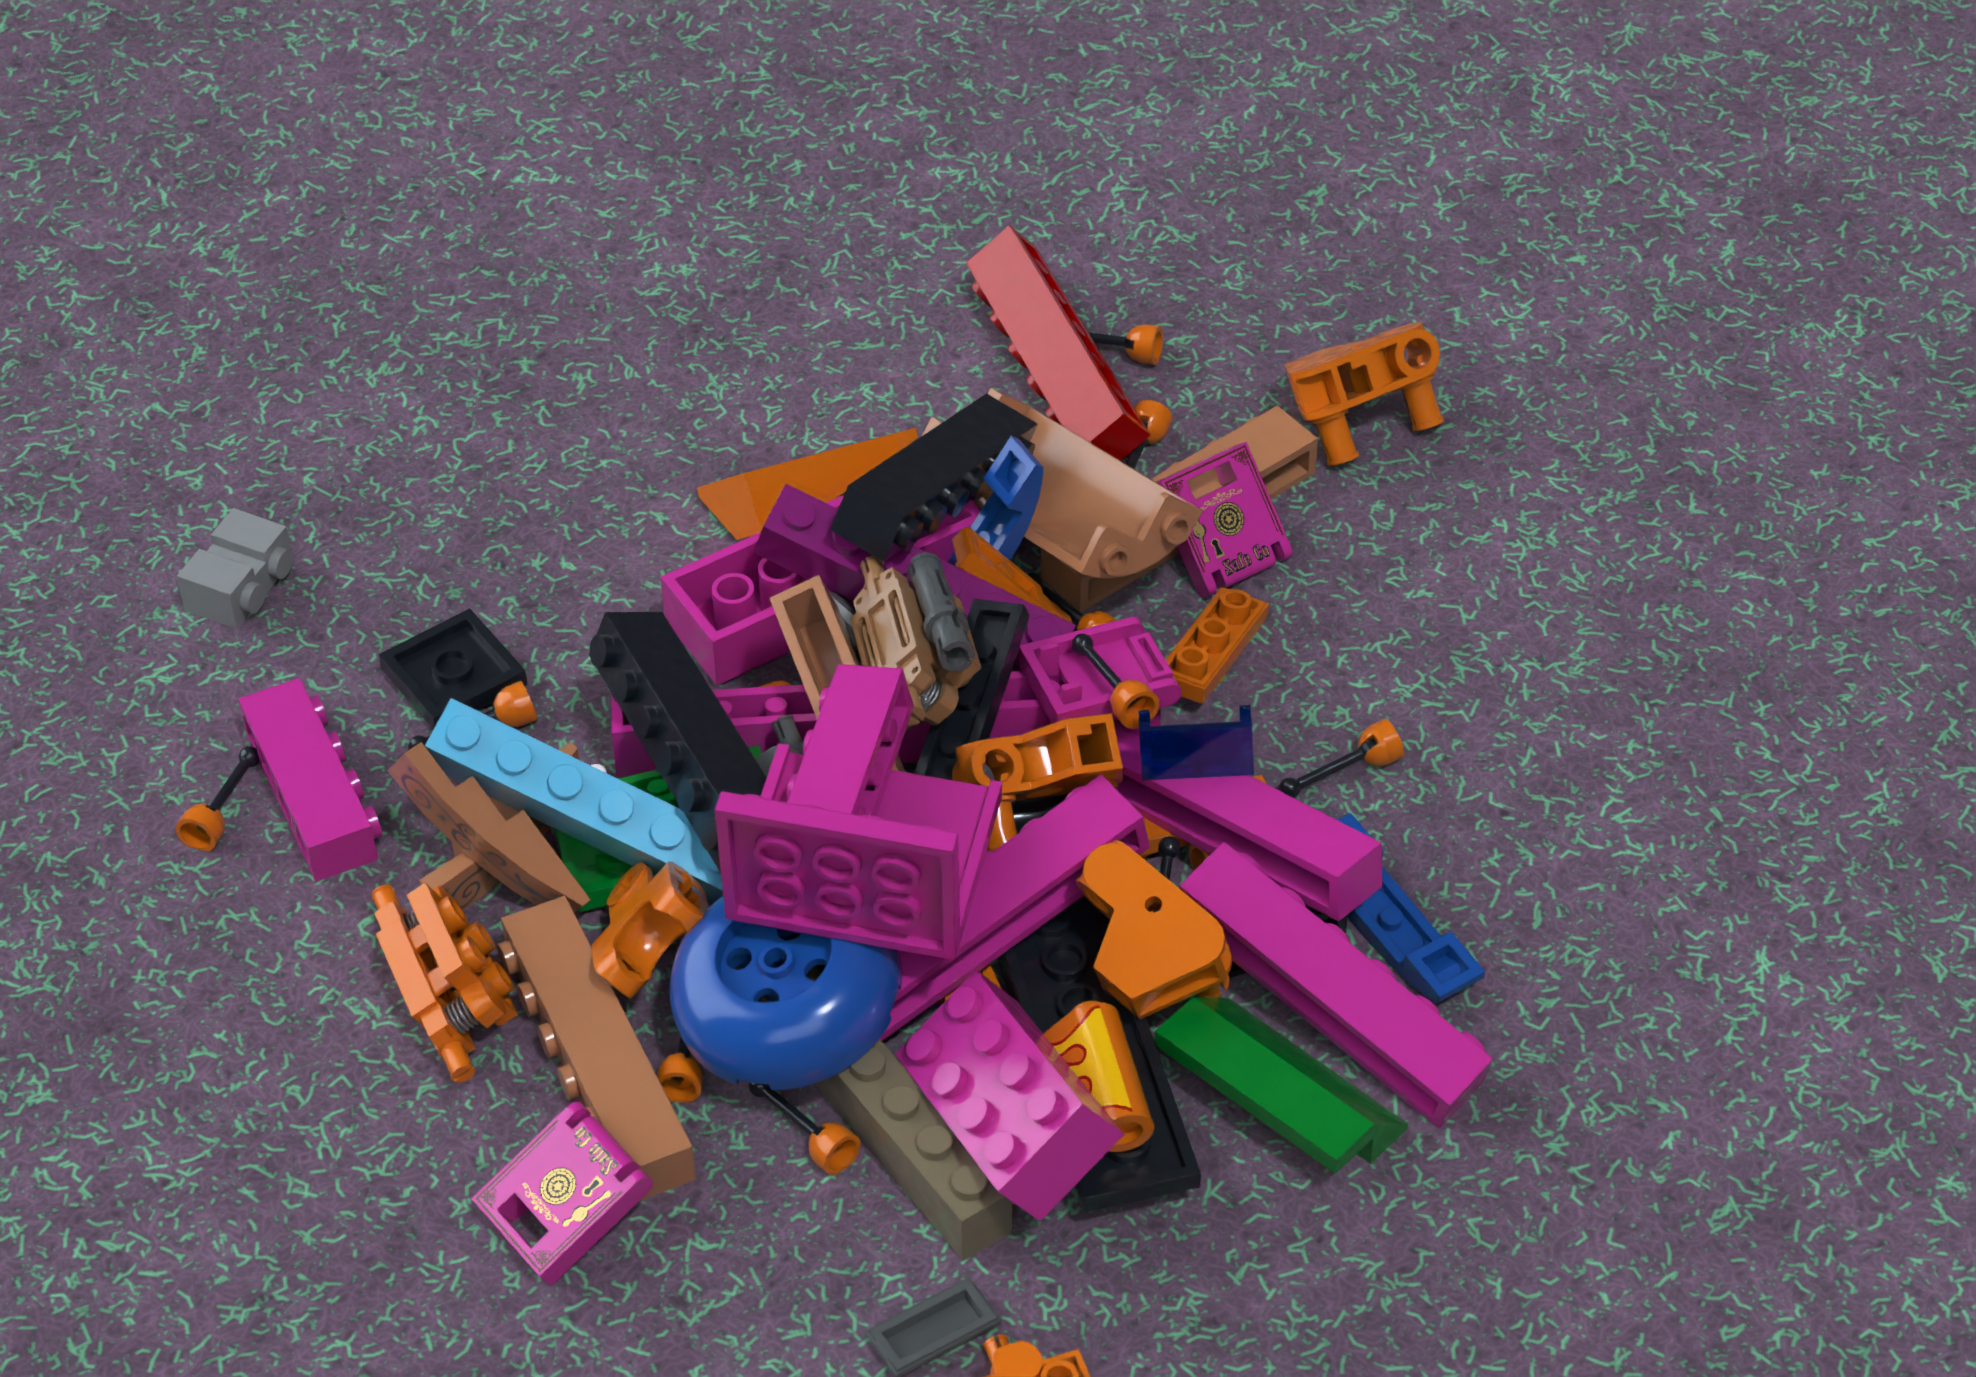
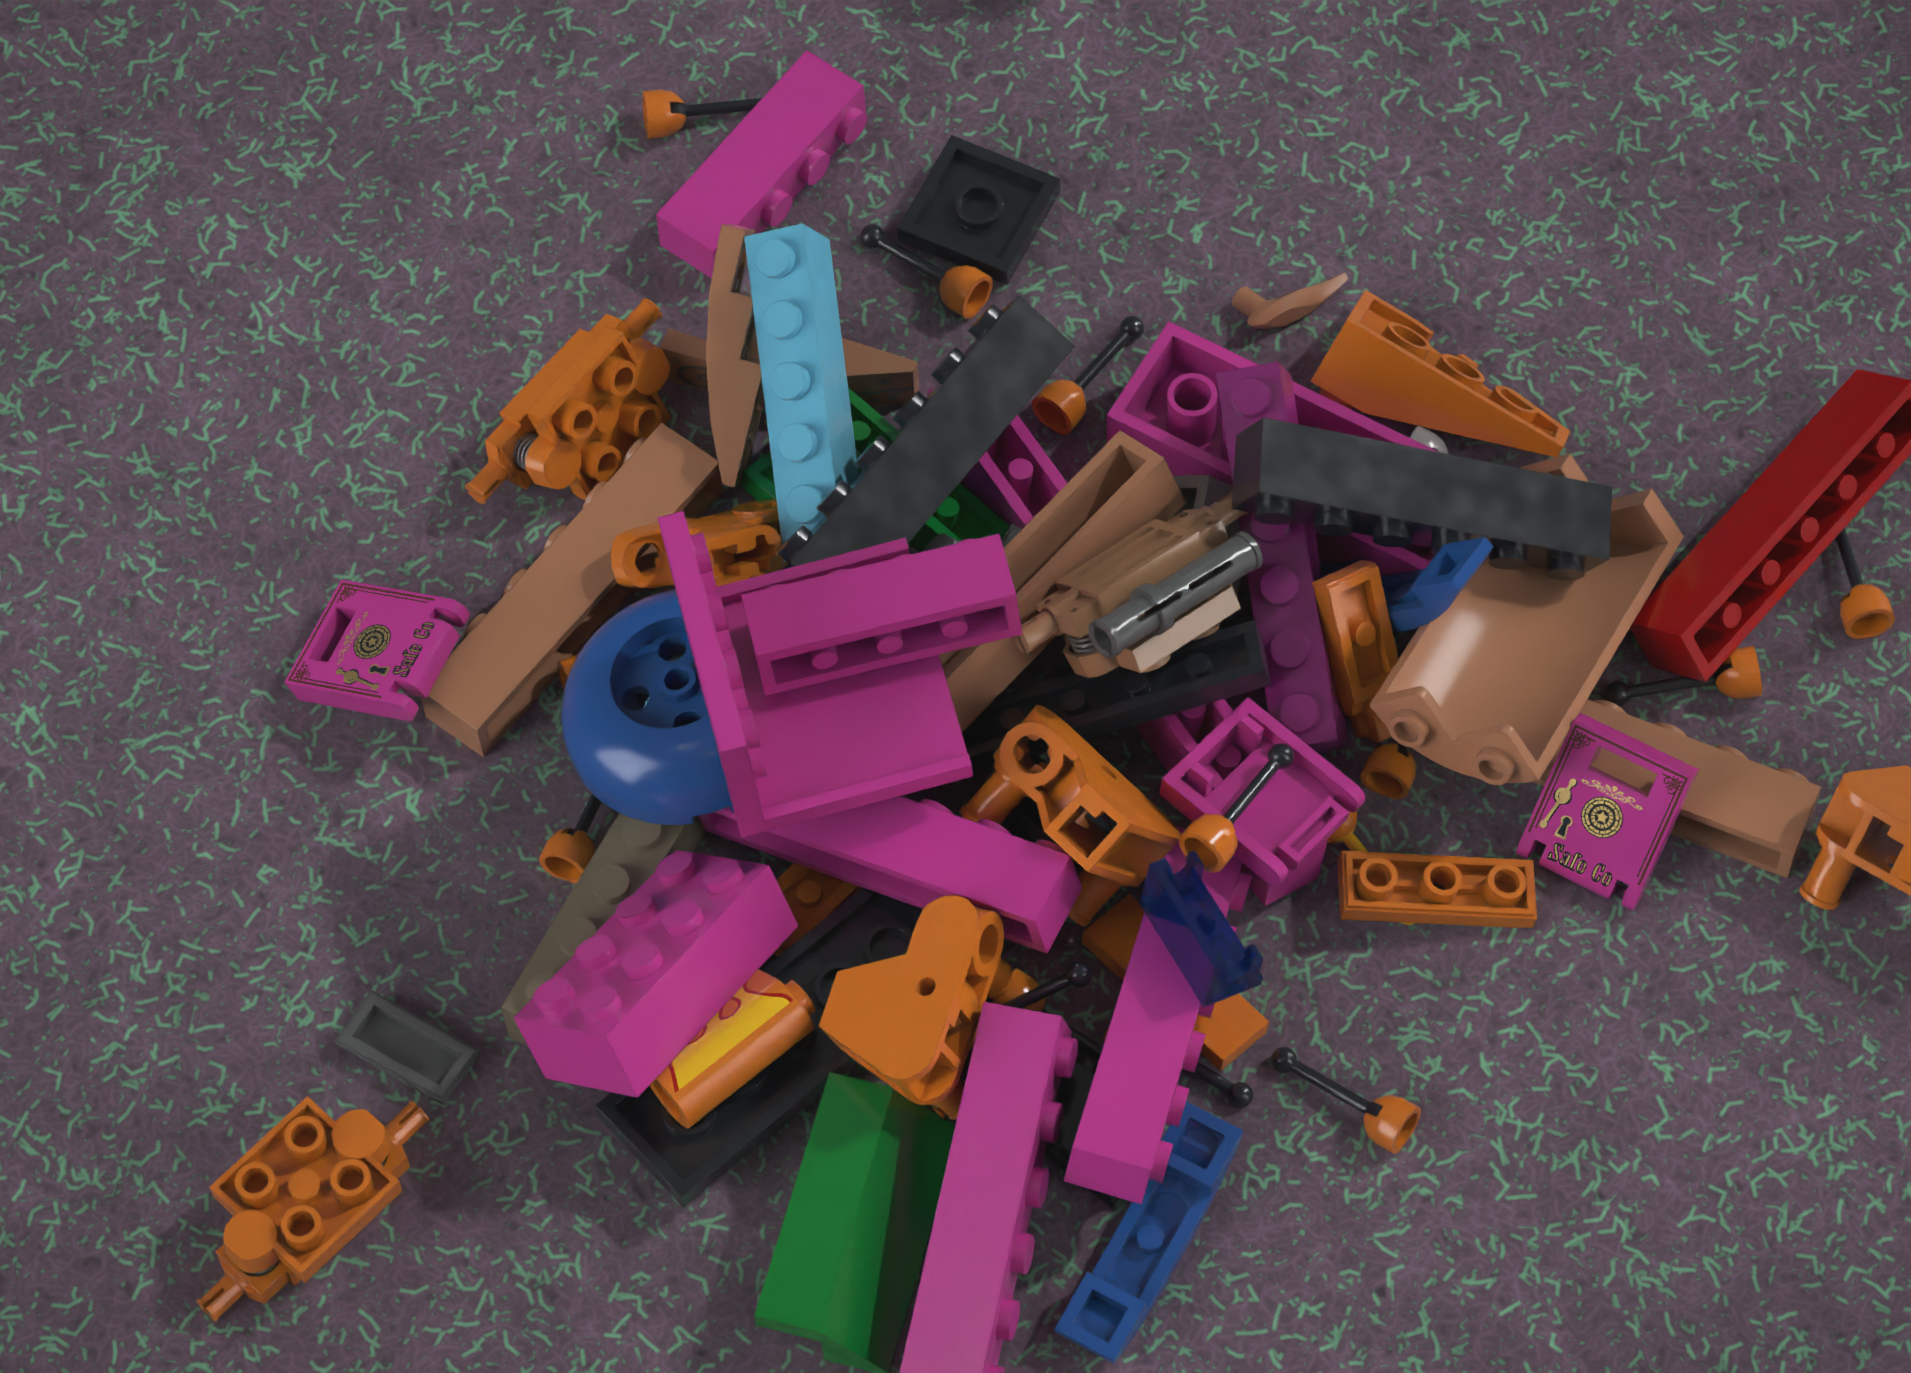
camera: 65 degrees right, 15 degrees up
(675, 538) = (1286, 308): none -> nougat bar

